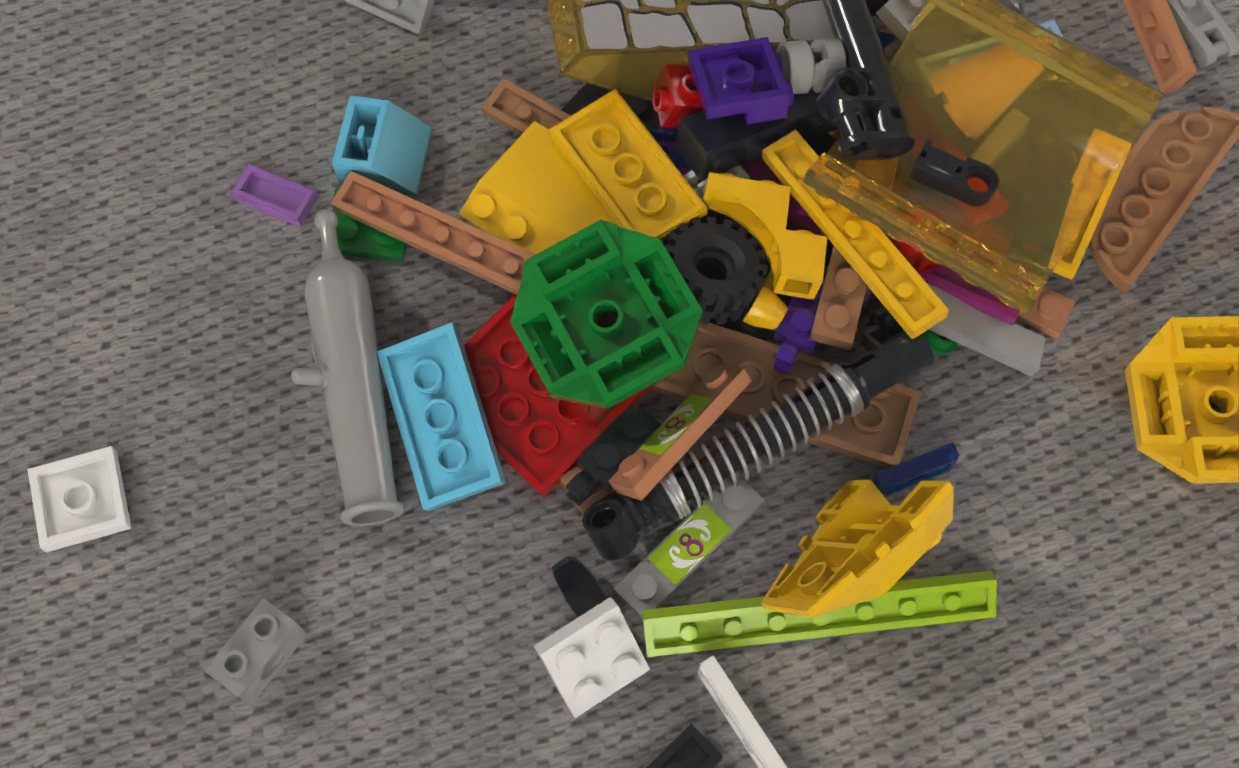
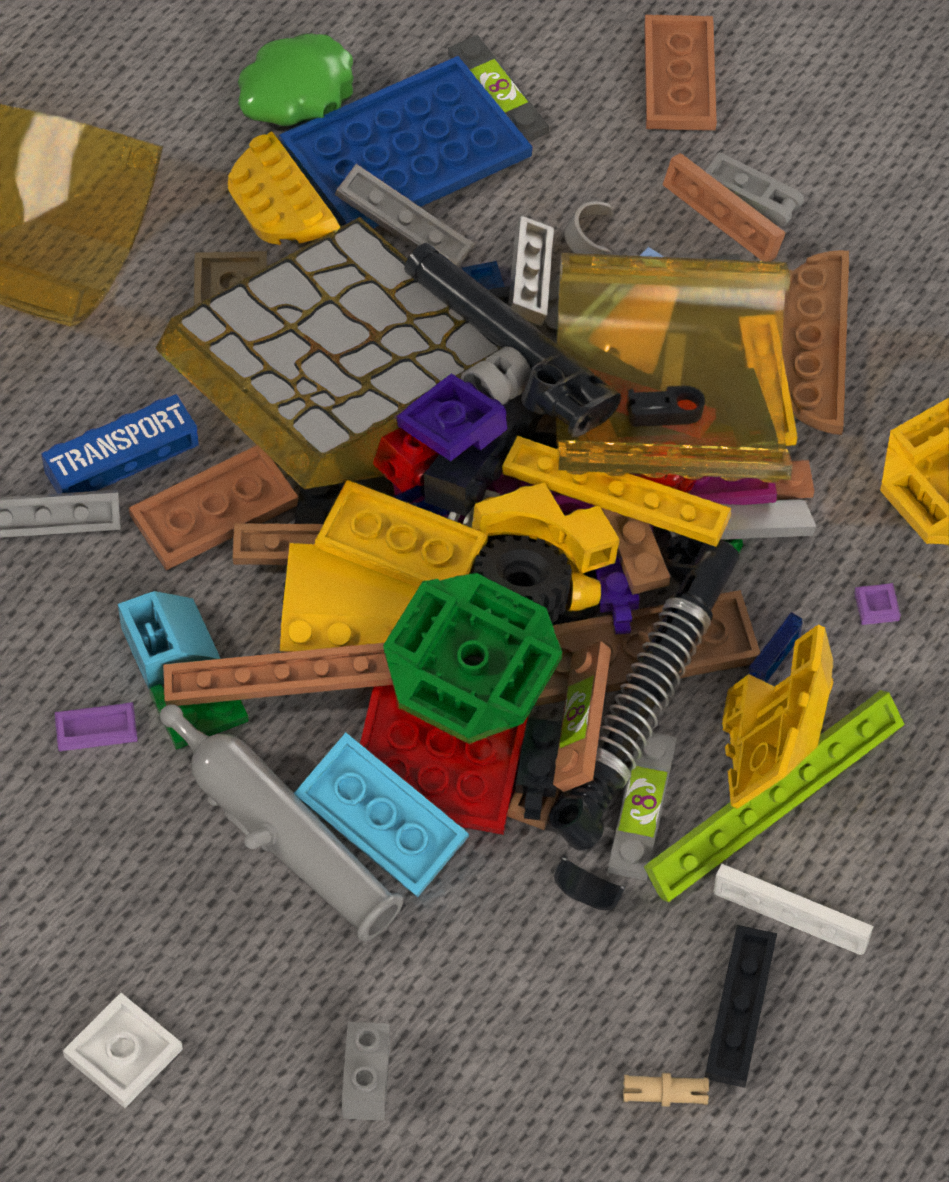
camera: 35 degrees left, 10 degrees down
(483, 51) = (206, 506): none -> nougat plate
(592, 657) = (632, 919): white plate -> none
(1050, 479) = (877, 604): none -> medium lavender tile

